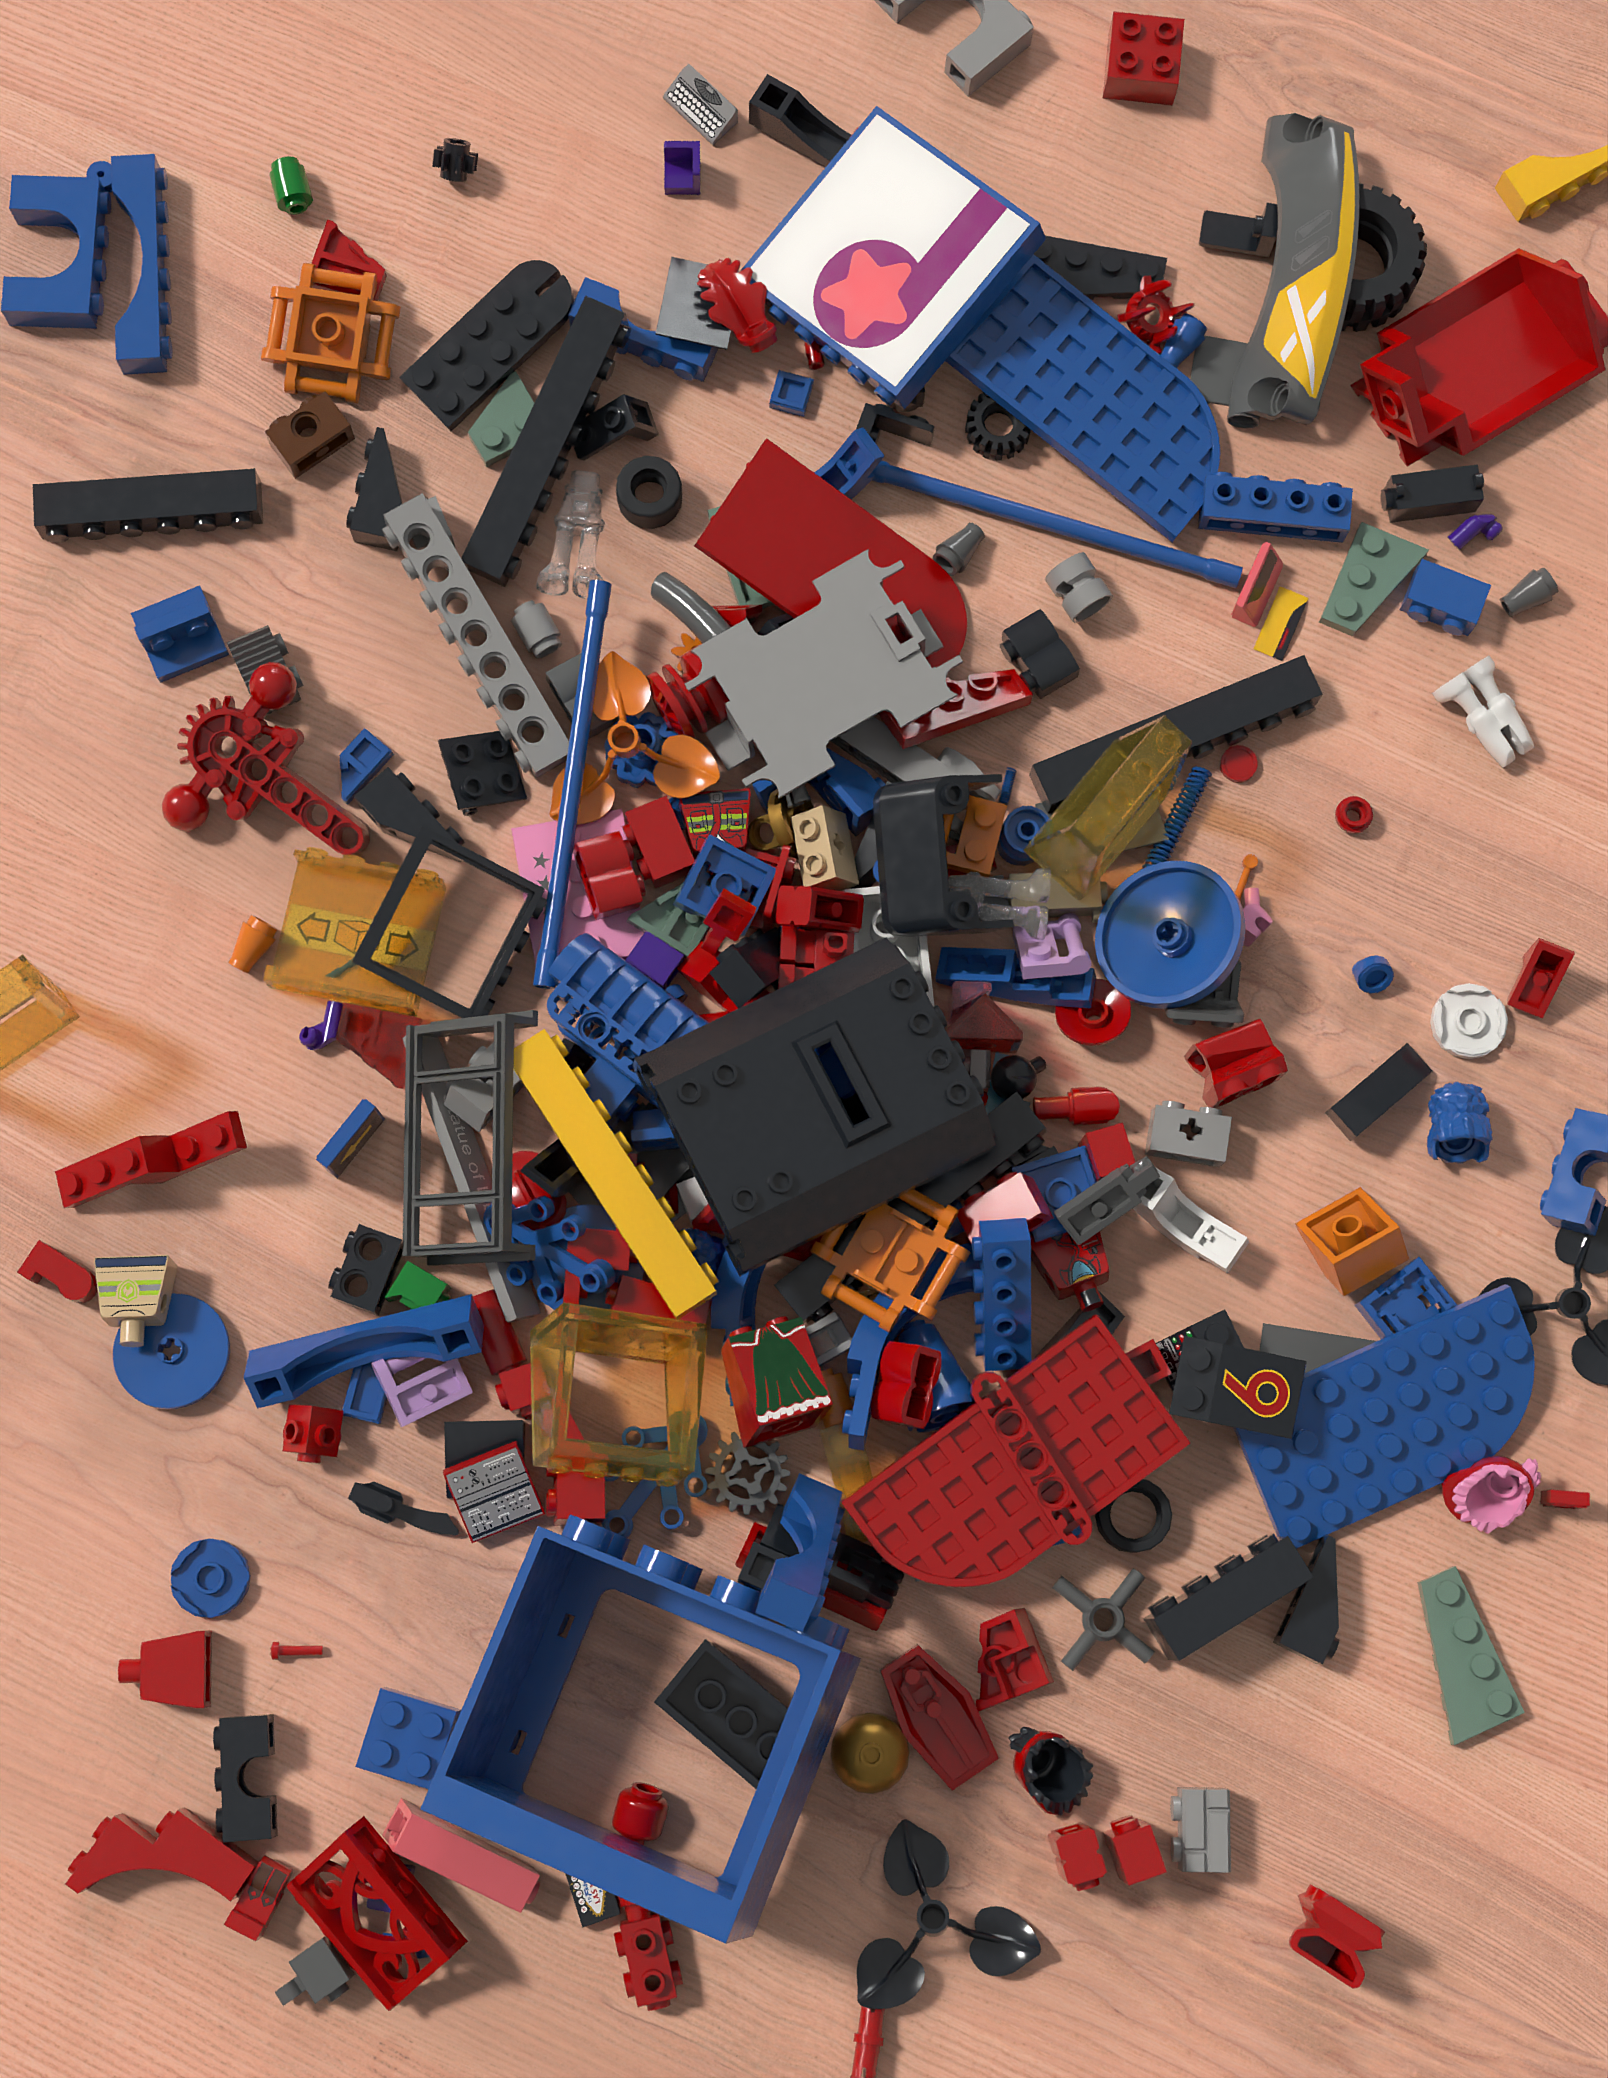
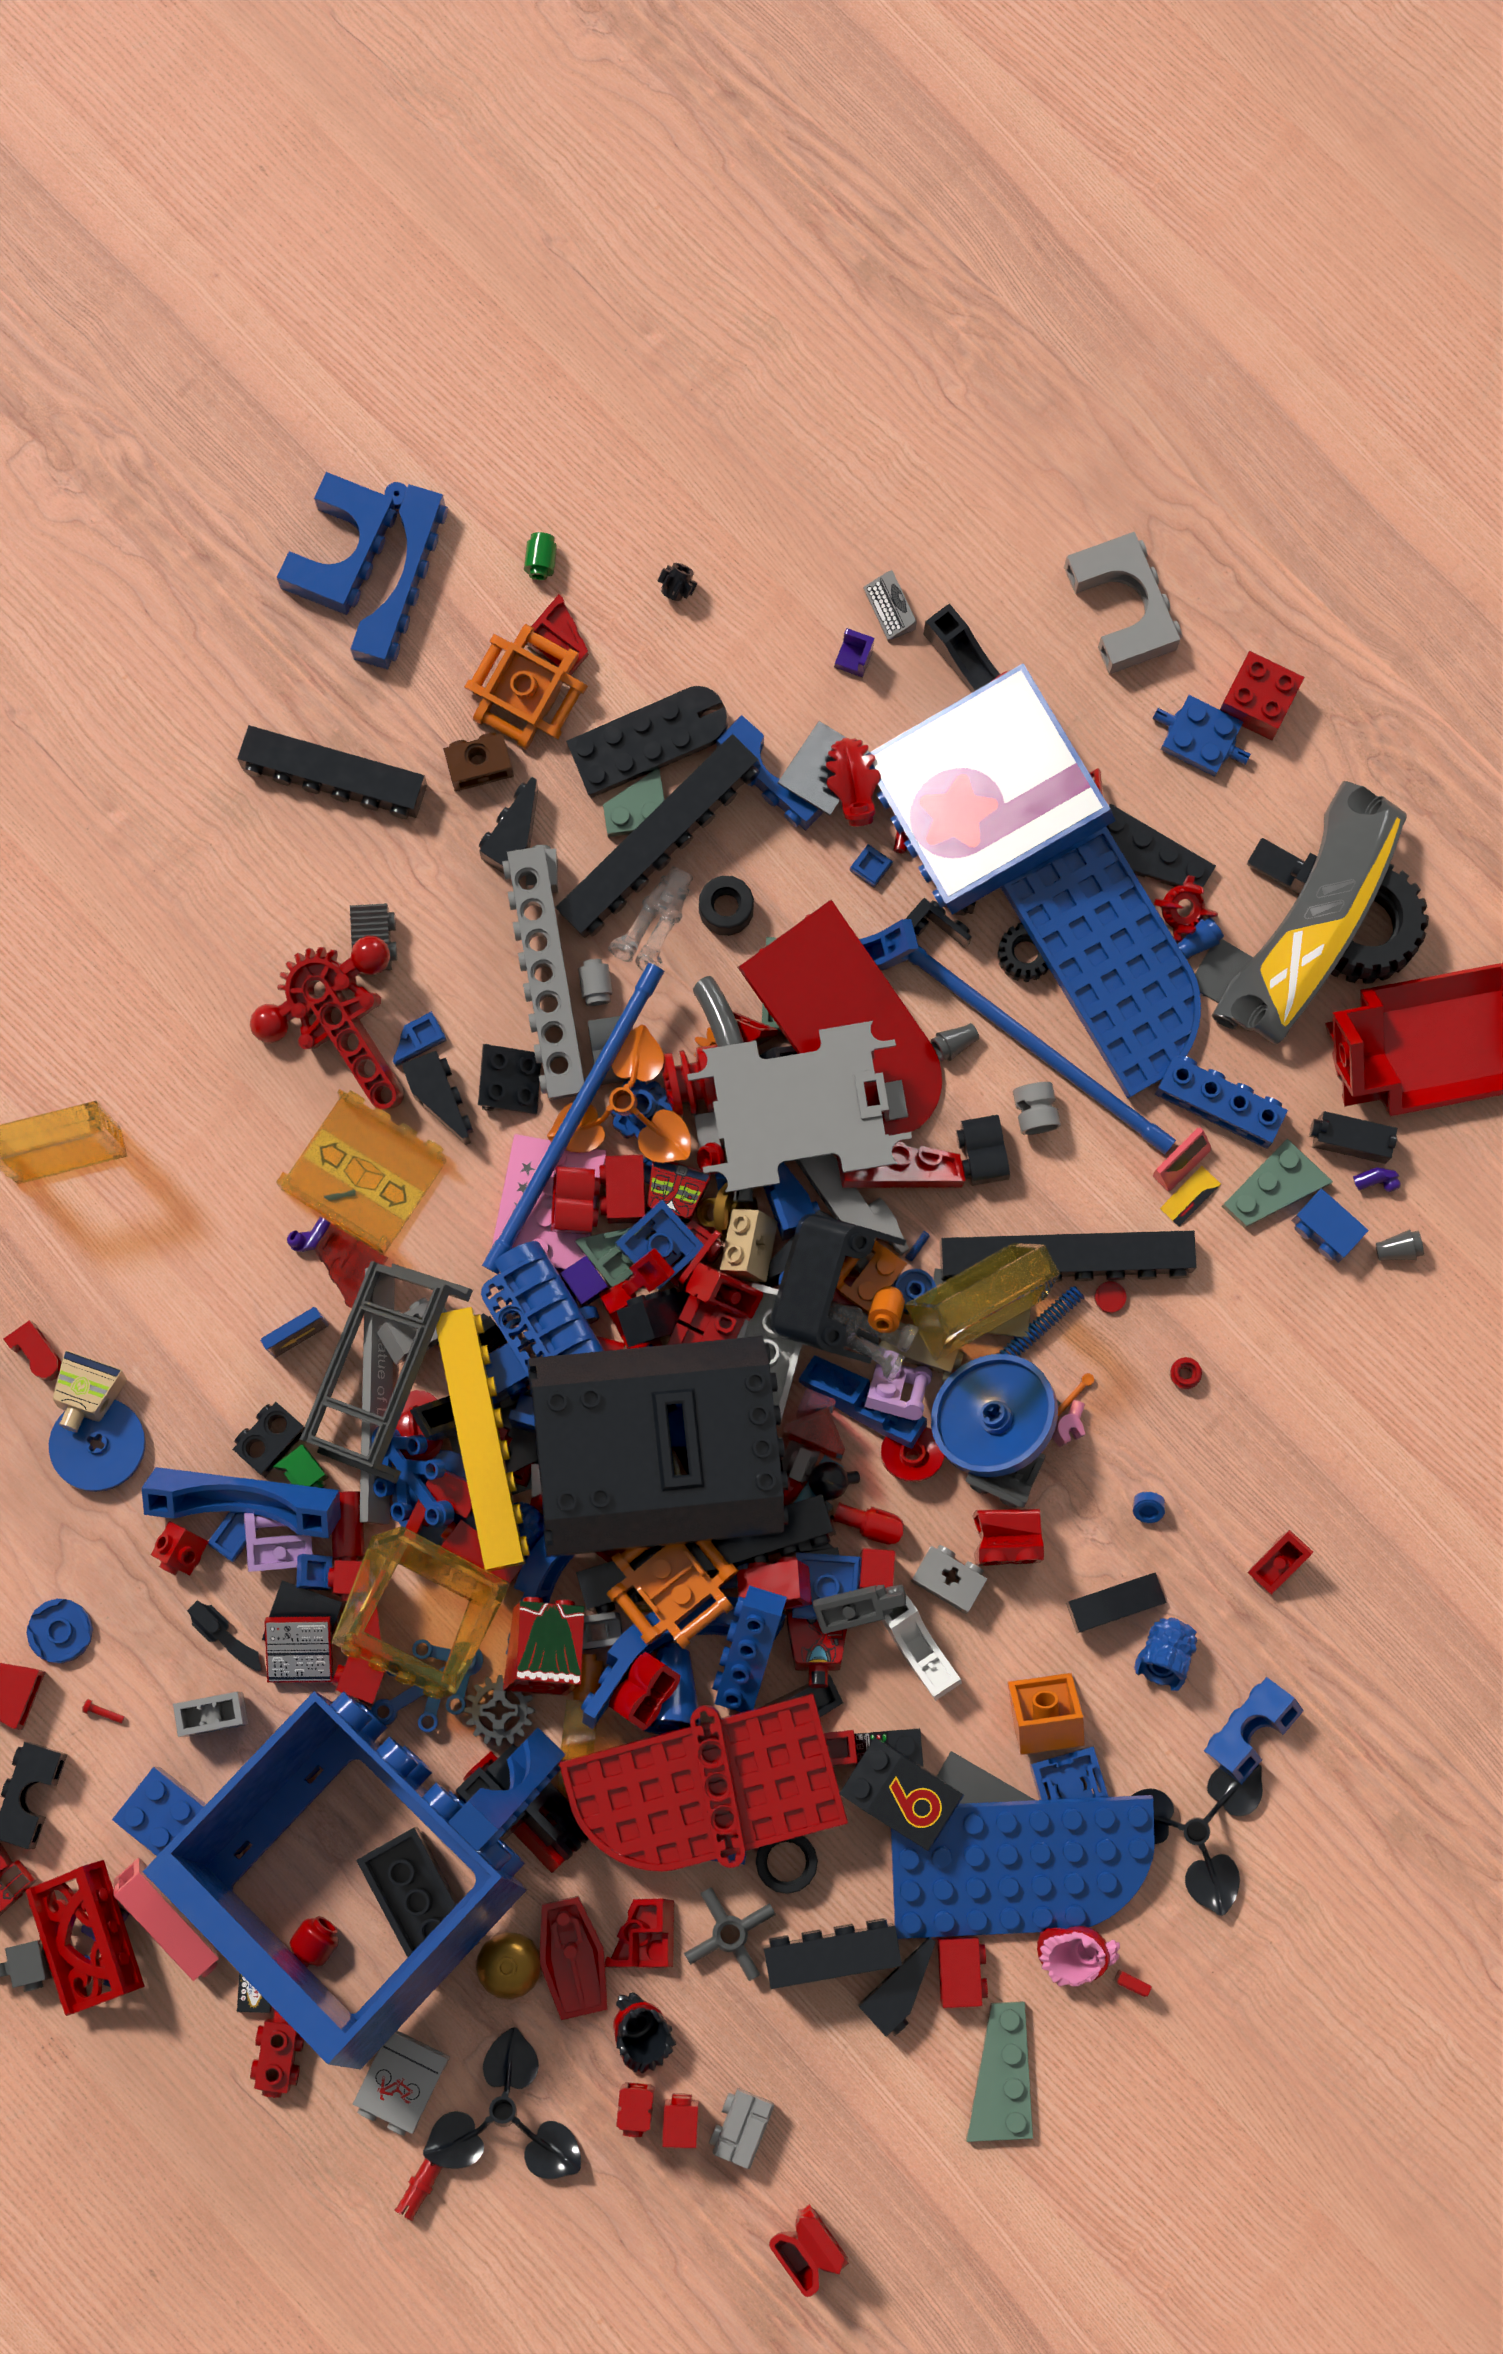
camera: 25 degrees right, 0 degrees up
(151, 1159) = (137, 1290): red bracket -> none
(179, 634) = (317, 883): blue bracket -> none
(252, 942) = (281, 1148): orange cone -> none
(421, 1603) = (210, 1714): none -> light grey brick
(476, 1398) = (313, 1571): none -> blue tile
(514, 940) = (461, 1242): black window -> none
(614, 421) = (721, 839): black bracket -> none
(740, 767) = (710, 1155): none -> red plate
(801, 1933) = (400, 2082): none -> light grey panel
(1007, 862) = (886, 1309): none -> orange brick
(1095, 125) = (1201, 735): none -> blue plate
(1374, 1561) = (961, 1972): none -> red brick
(1468, 1021) = (1211, 1574): white tile -> none
(1492, 723) = (1331, 1340): white piece -> none

